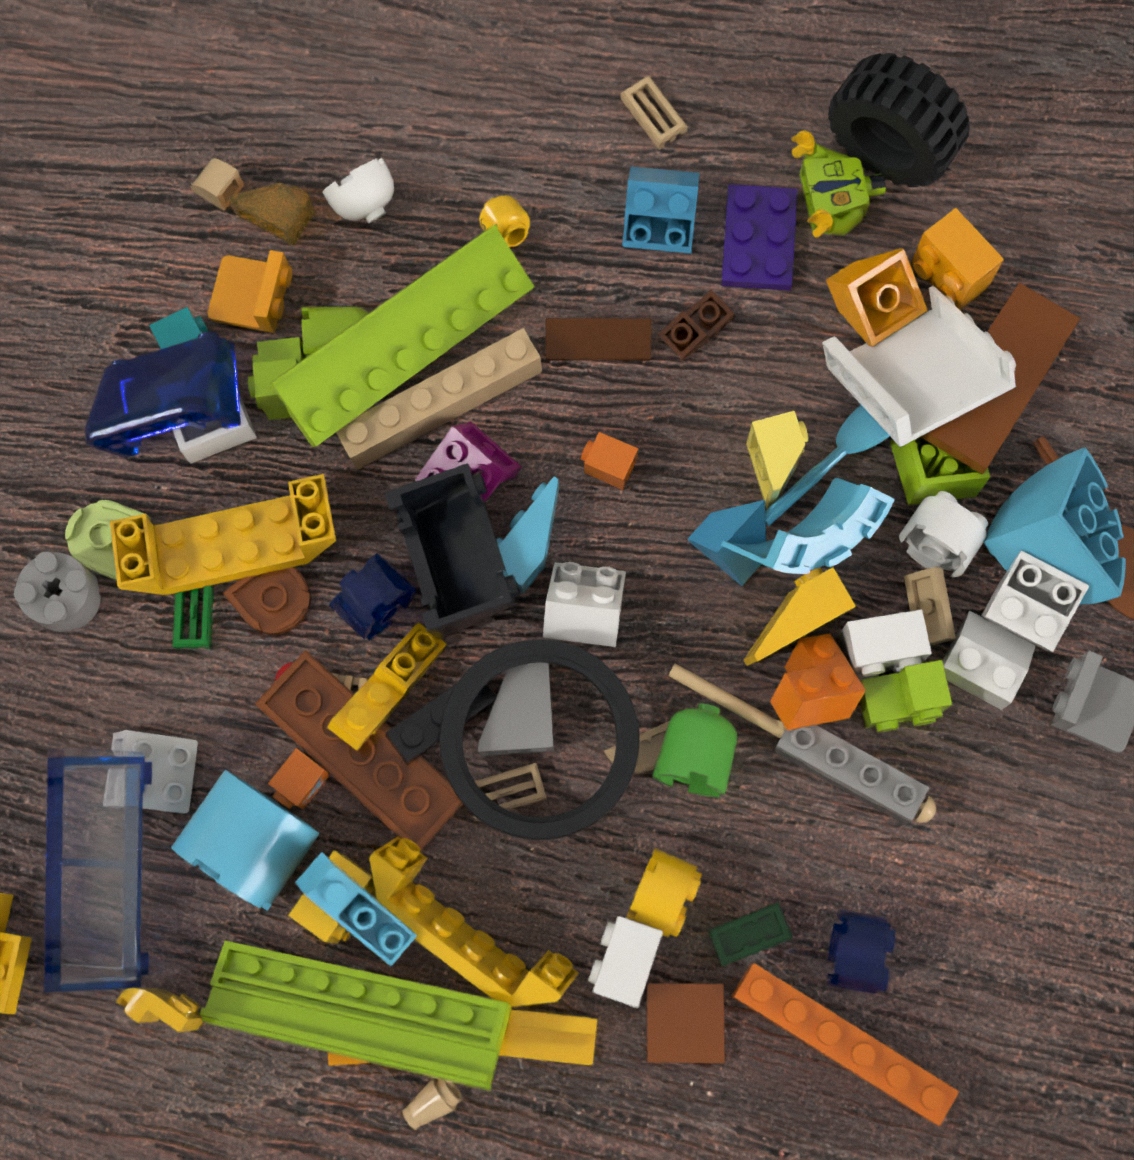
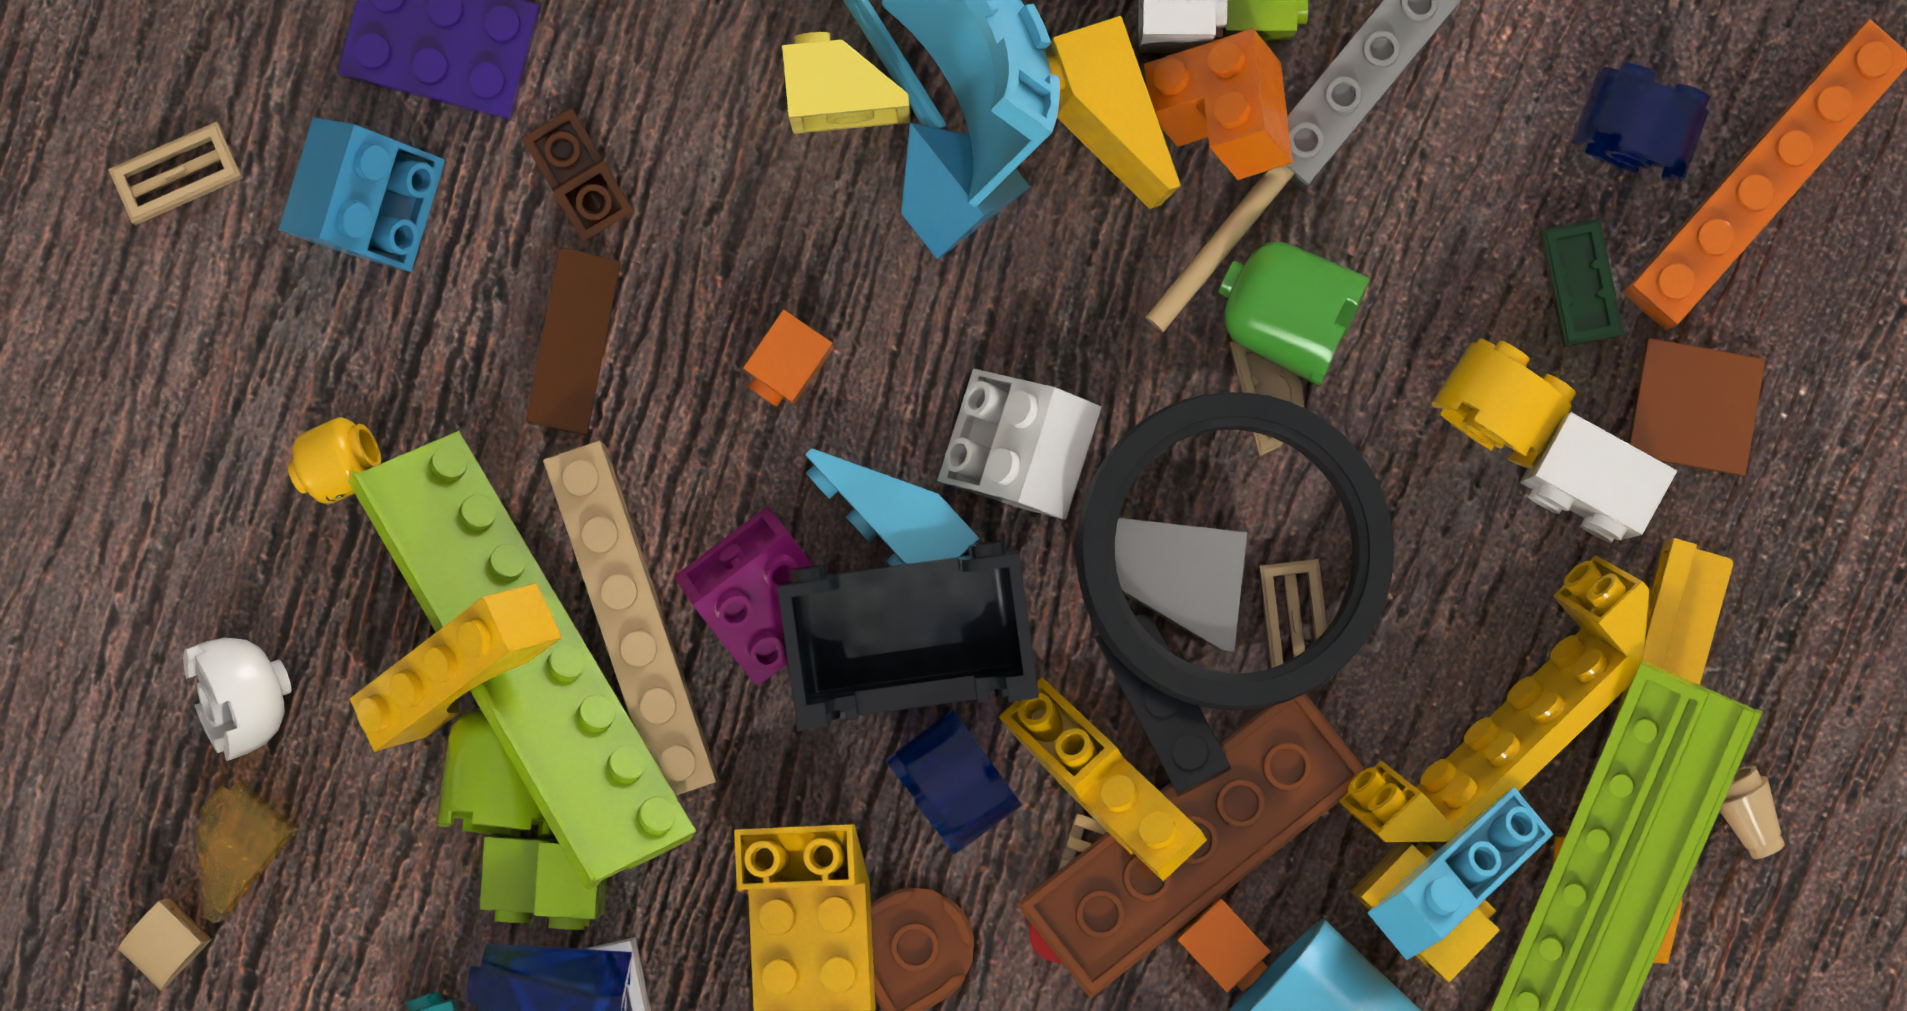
camera: 85 degrees left, 10 degrees up
(250, 291) = (377, 912): light orange bracket -> none
(401, 295) = (475, 646): none -> yellow arch

